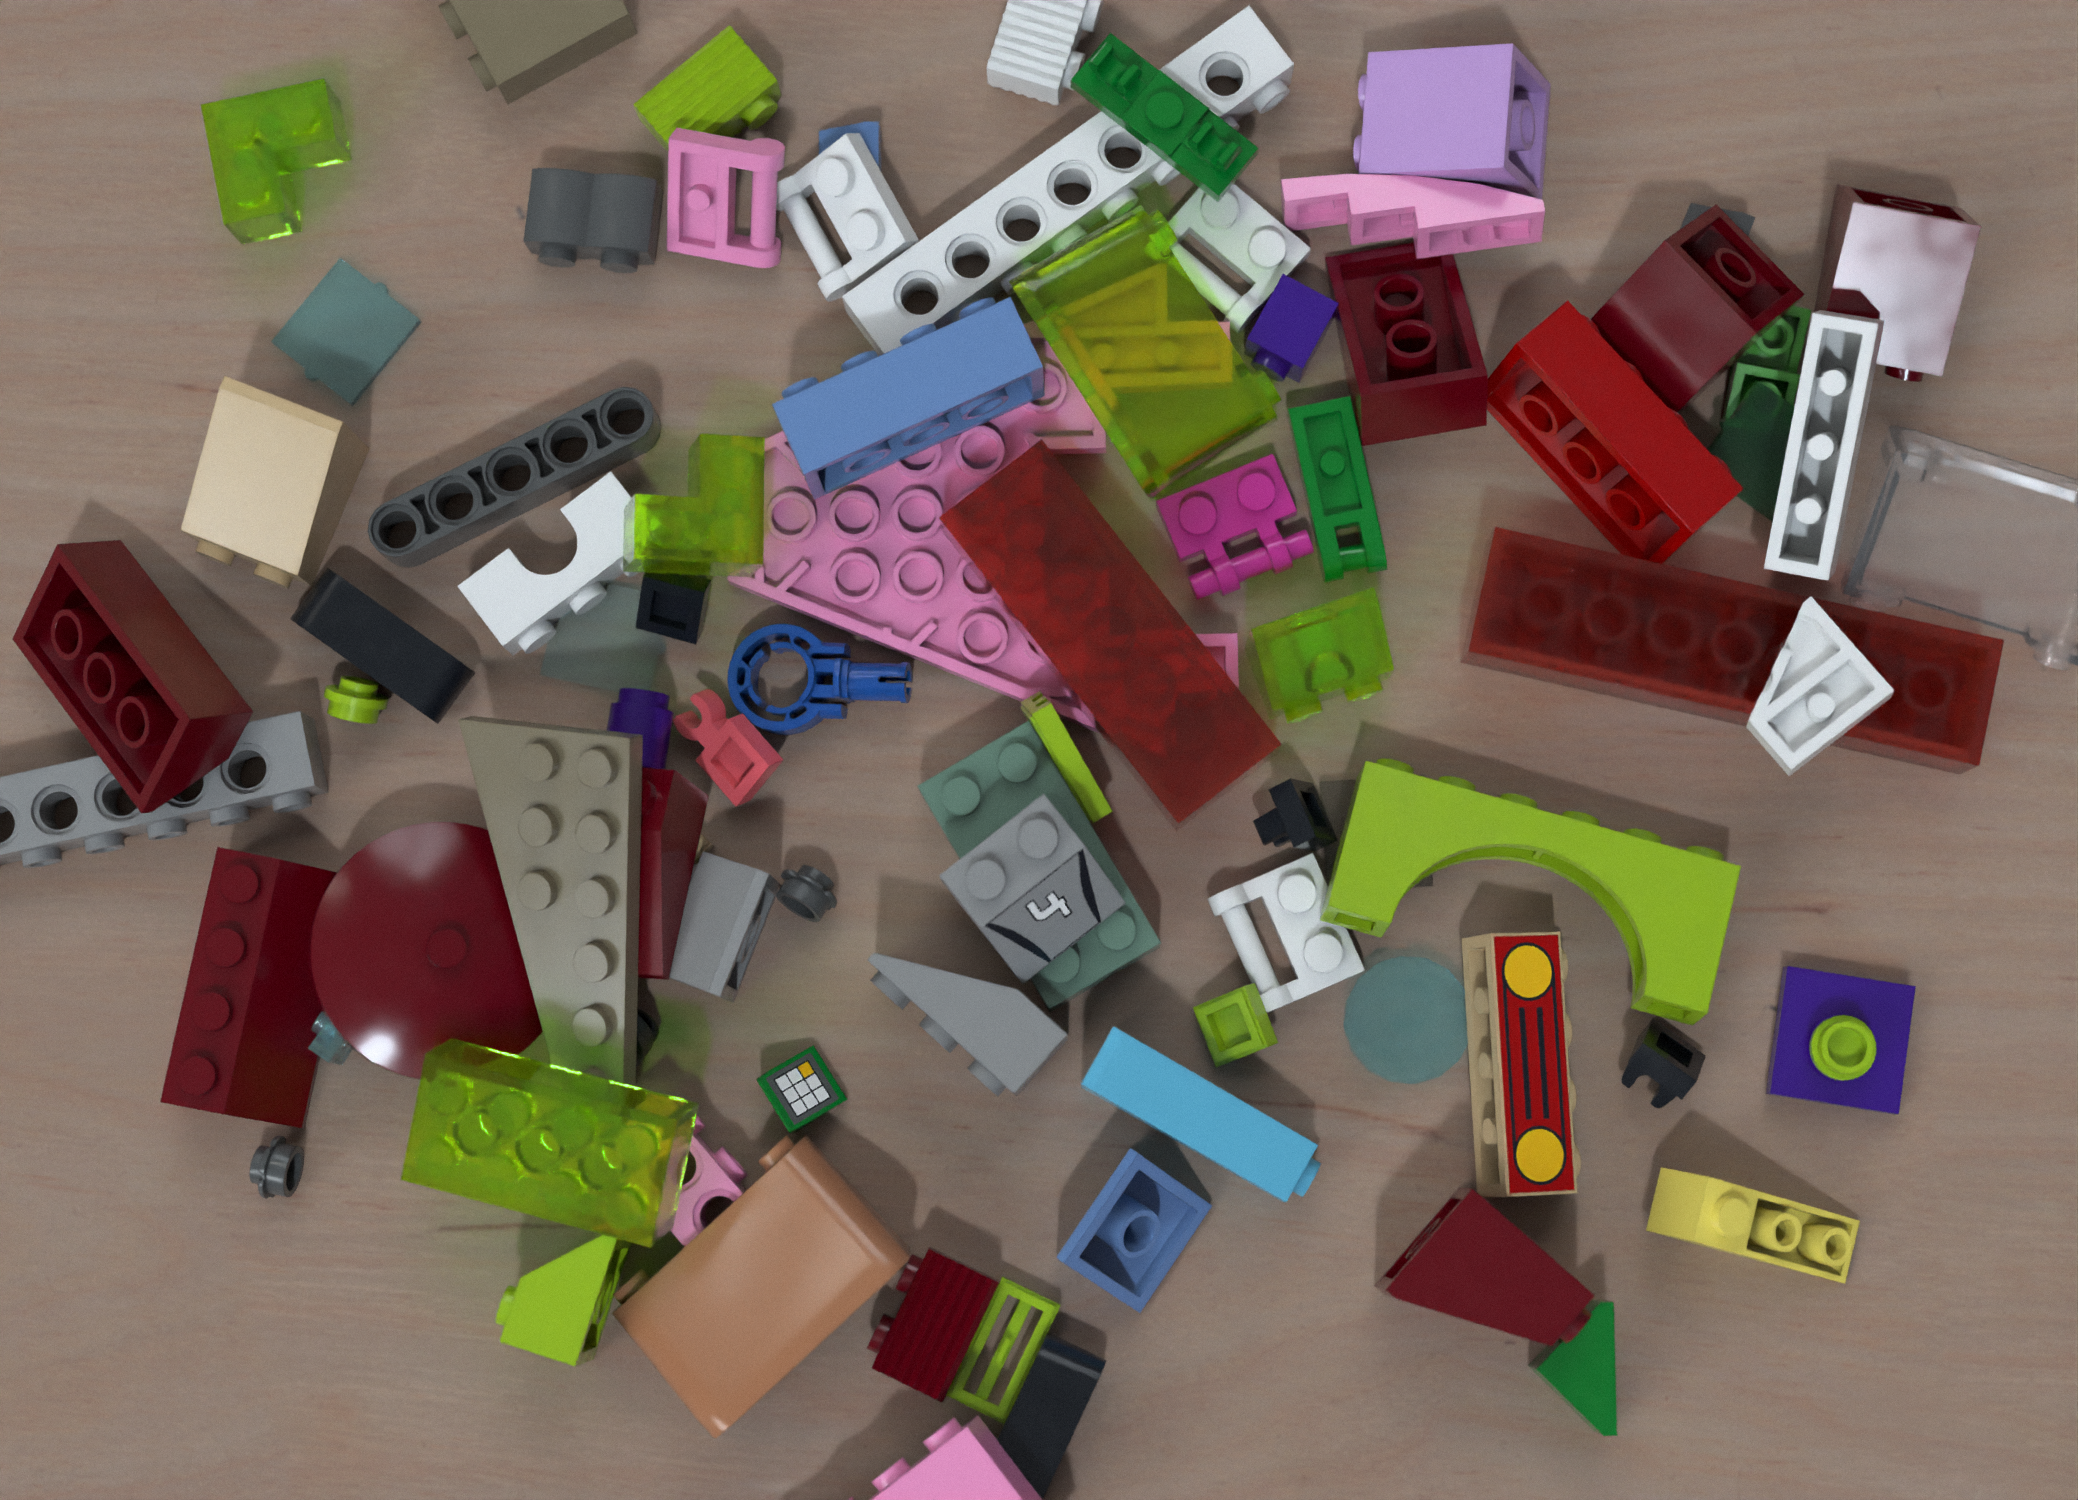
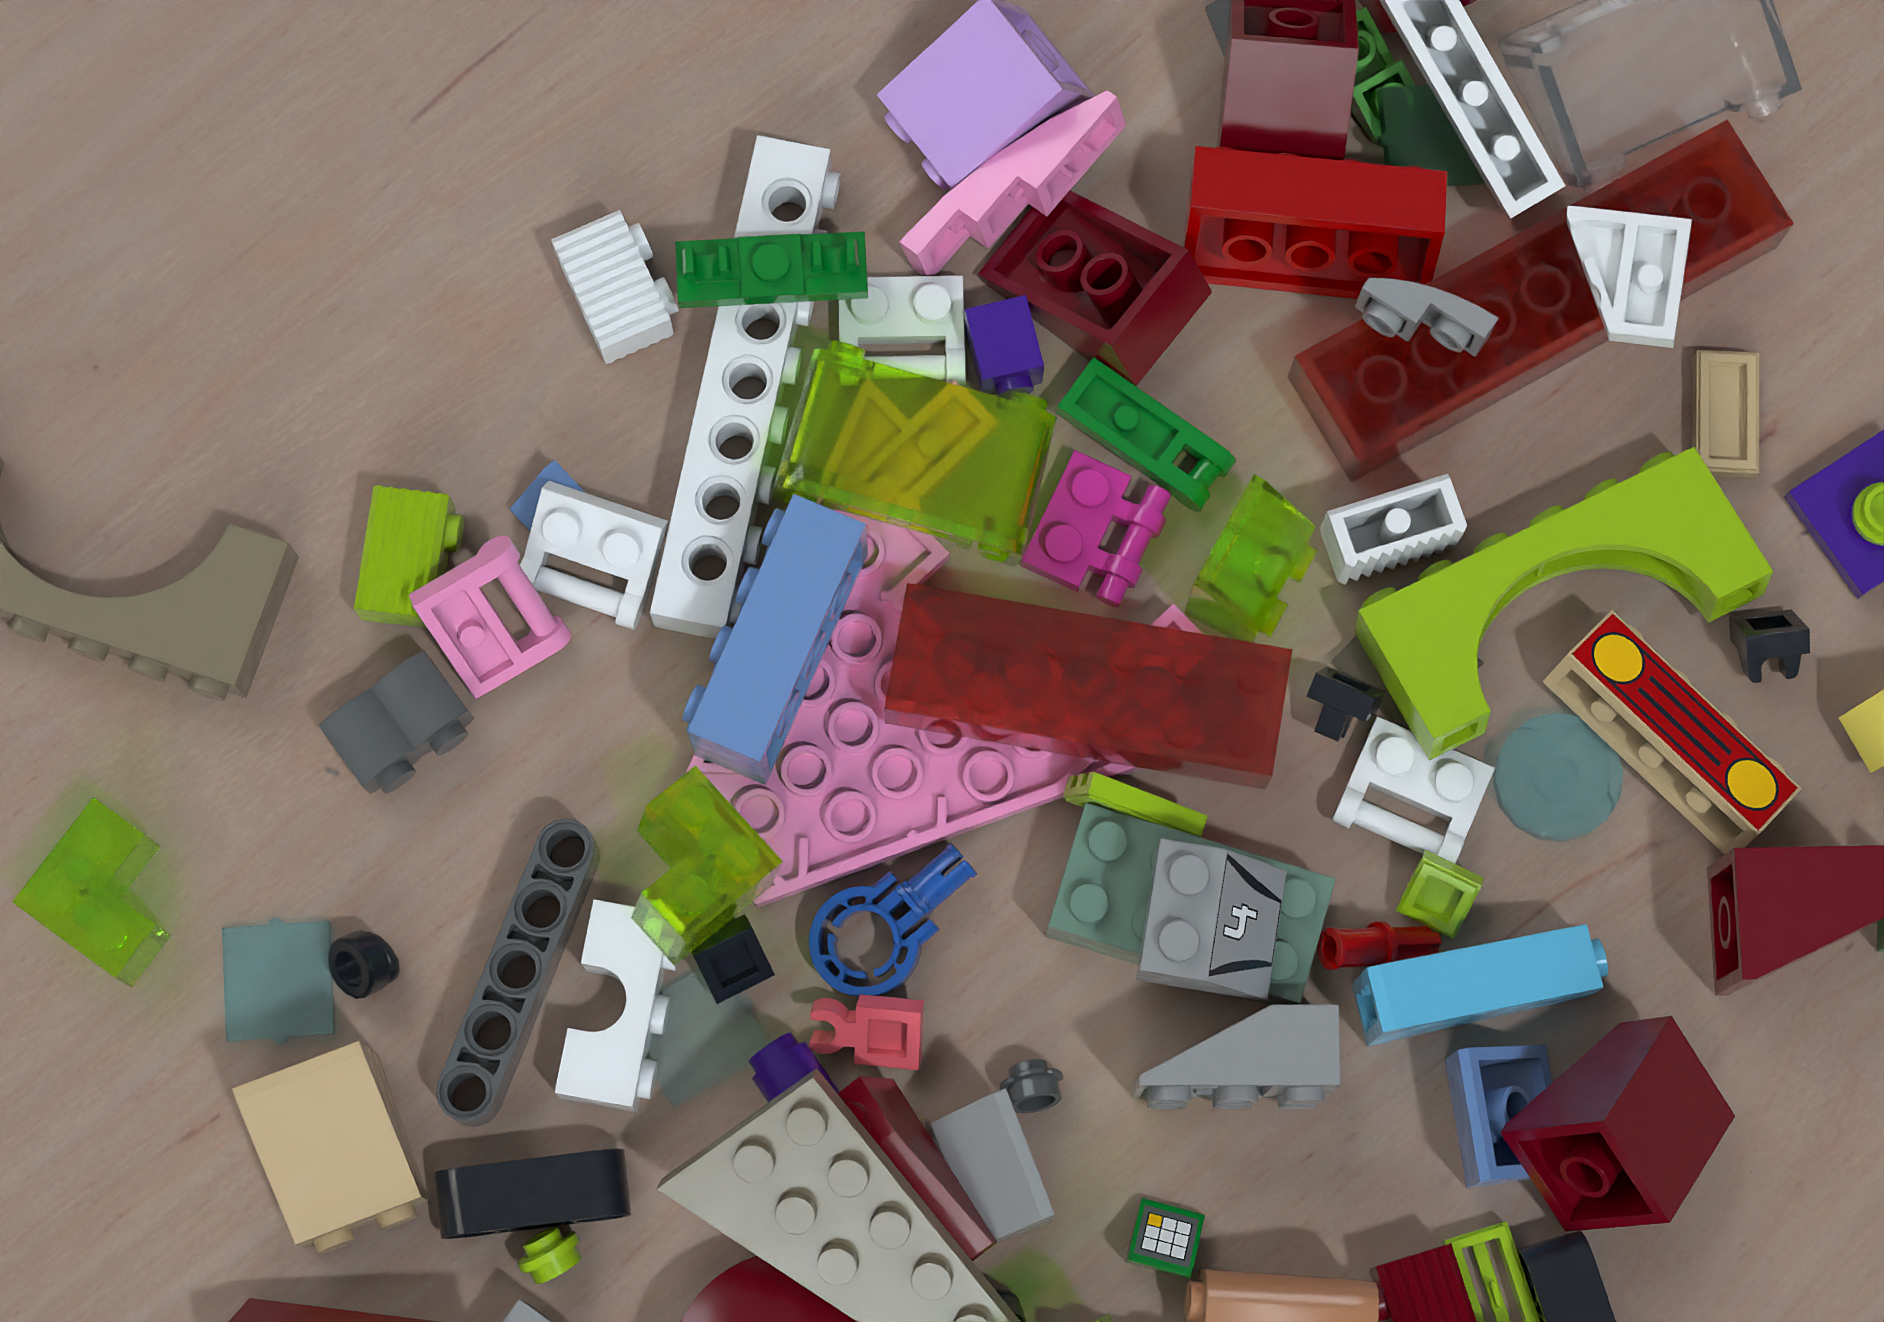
camera: 50 degrees left, 5 degrees down
(414, 372) = (362, 963): none -> black tile
(1150, 1020) = (1374, 945): none -> red axle
(1202, 1317) = (1622, 1129): none -> dark red slope
(1453, 723) = (1393, 528): none -> white brick
(1610, 564) = (1401, 307): none -> light grey slope
(1797, 864) = (1726, 412): none -> tan tile

